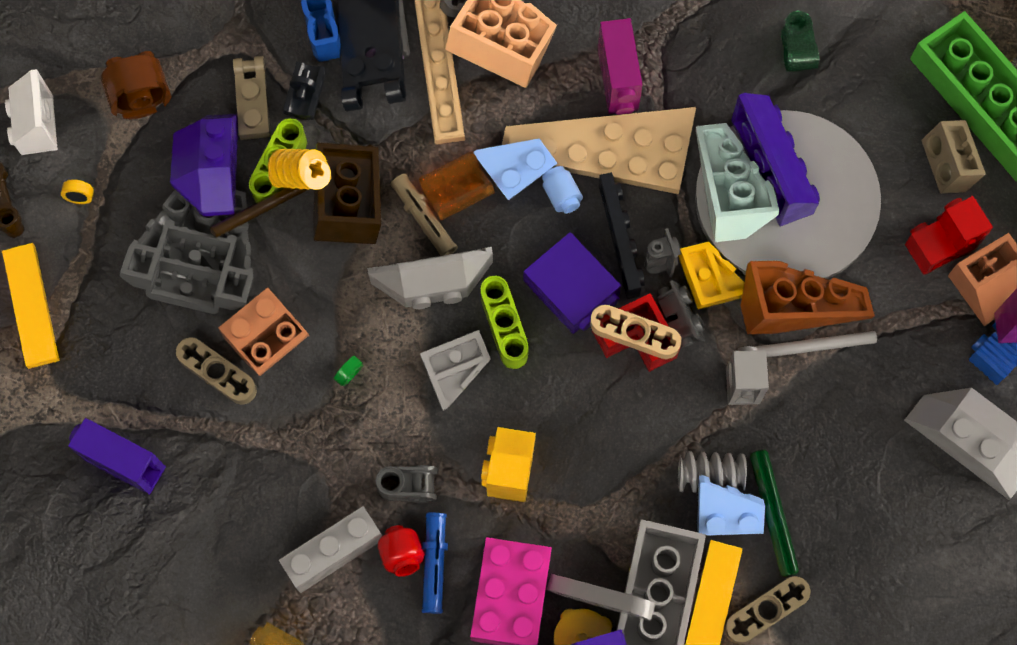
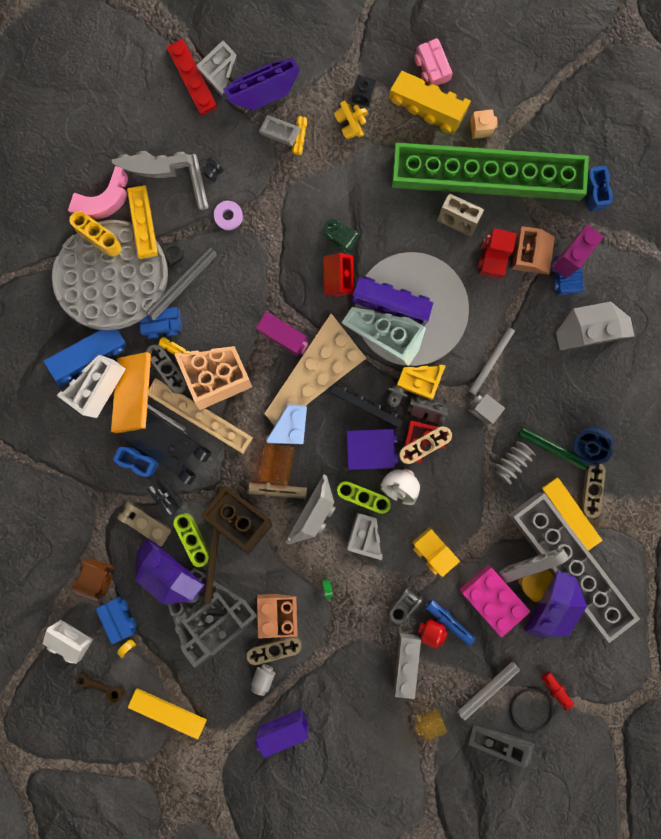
camera: 55 degrees left, 15 degrees up
(105, 152) = (116, 619): none -> blue brick
(166, 383) = (262, 679): none -> light grey brick
(298, 169) = (210, 538): yellow piece -> none
(557, 354) = (401, 485): none -> white cylinder
(562, 190) = (320, 414): light blue brick -> none
(728, 510) = (538, 470): light blue wing -> none
(750, 72) = (338, 275): none -> red brick
(791, 300) = (462, 354): dark orange wedge -> none
(824, 553) = (594, 446): none -> dark blue cylinder

